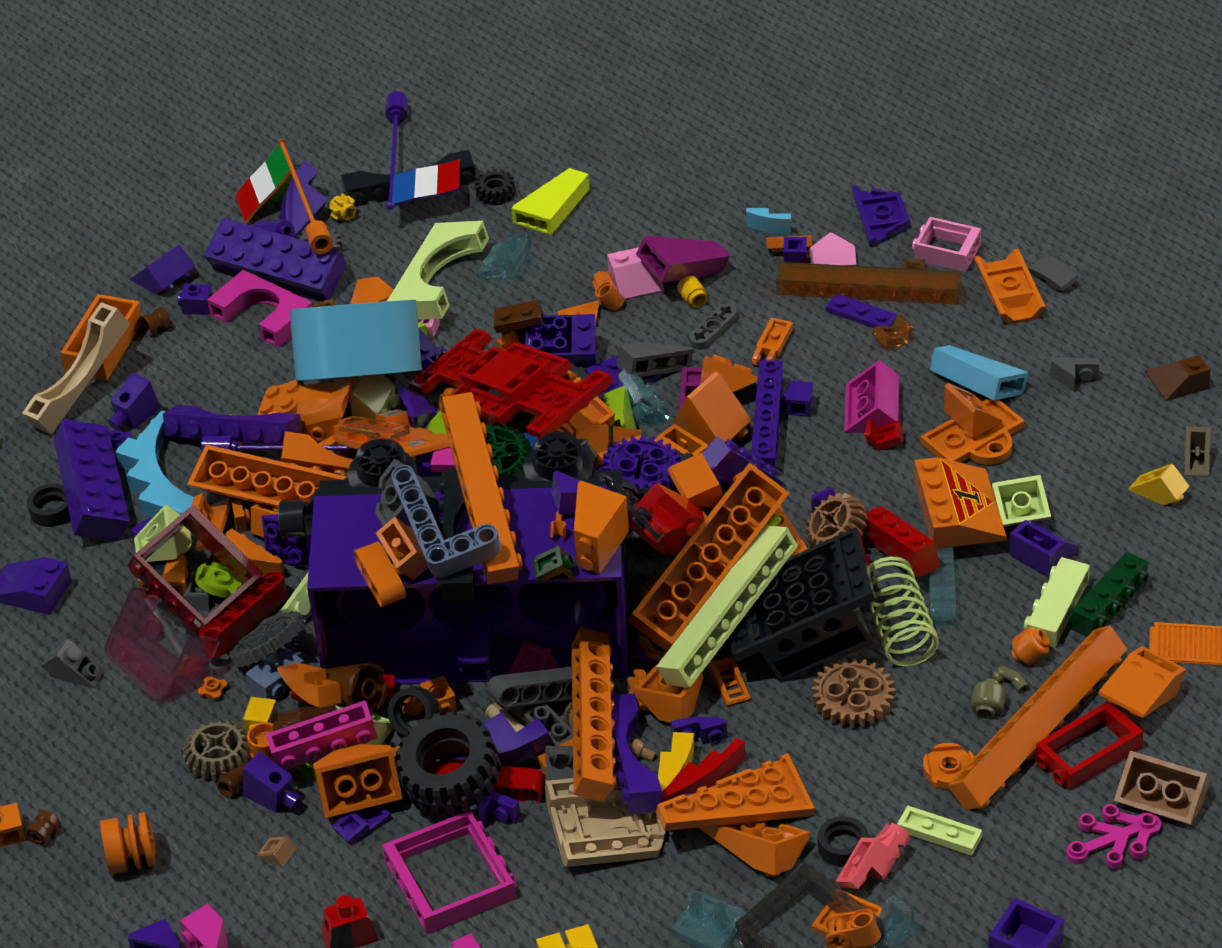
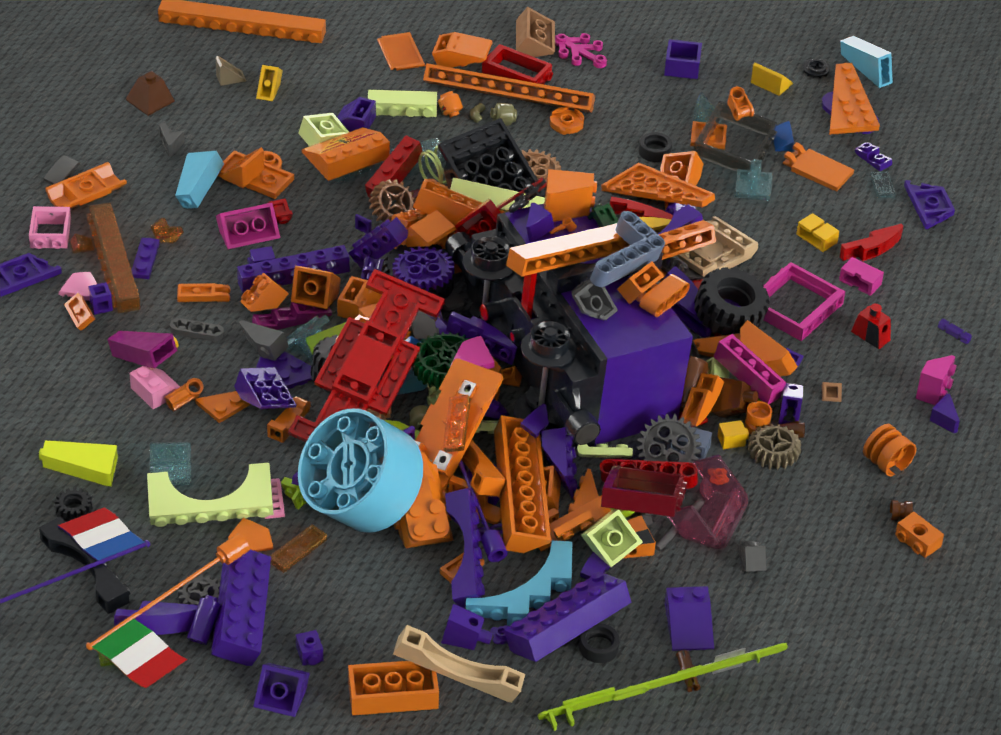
camera: 120 degrees left, 0 degrees up
(156, 321) = (344, 660): reddish brown wheel -> none
(248, 290) = (295, 578): dark pink arch -> none
(342, 207) = (144, 592): yellow gear -> none
(517, 317) = (264, 411): reddish brown bracket -> none
(771, 223) = (58, 327): medium azure slope -> none
(874, 857) = (666, 125): coral plate -> none
(940, 830) = (620, 113): yellowish green plate -> none
(1110, 594) = (369, 78): dark green brick -> none

